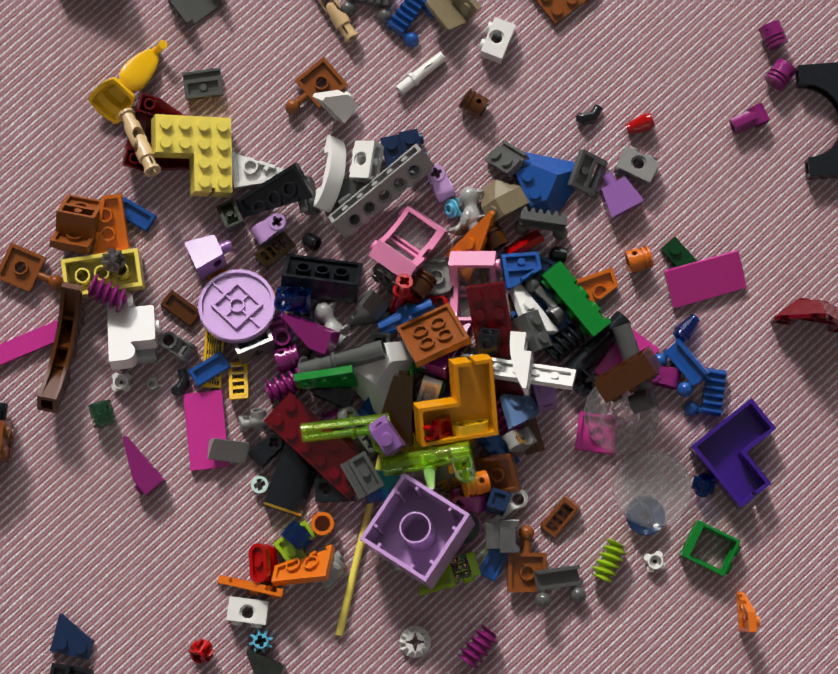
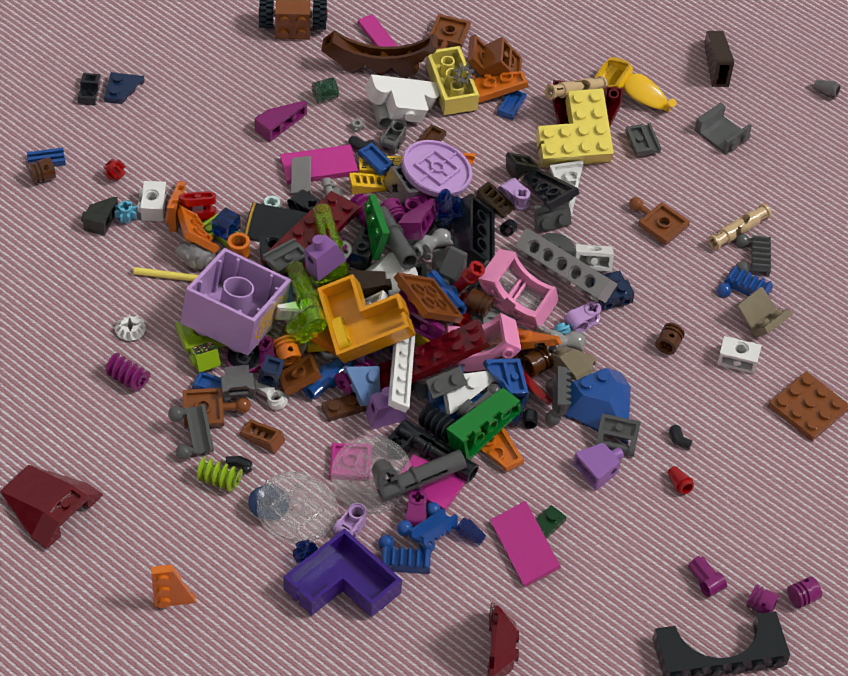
camera: 80 degrees right, 30 degrees down
(107, 293) = (432, 72): magenta piece -> none
(126, 382) = (356, 103): white plate -> none
(207, 254) = (481, 148): torso -> none
(333, 175) = (576, 232): white slope -> none
(337, 104) = (645, 229): white slope -> none
(414, 78) = (685, 293): white pin -> none
(439, 429) = (337, 304): red plate -> none
(489, 340) = (429, 340): black brick -> none
(507, 159) = (618, 363): dark grey plate -> none
(519, 439) = (334, 384): light grey leg -> none
(521, 359) = (410, 361): white slope -> none
(590, 538) = (240, 461): none -> black arm
(628, 375) = (410, 451): reddish brown brick -> none
(638, 259) = (535, 483): orange piece -> none
(643, 175) = (629, 485): light grey brick -> none
(653, 566) = (222, 513): white plate -> none
(673, 439) = (350, 522): none -> lavender piece
(692, 538) = (244, 545): green window -> none

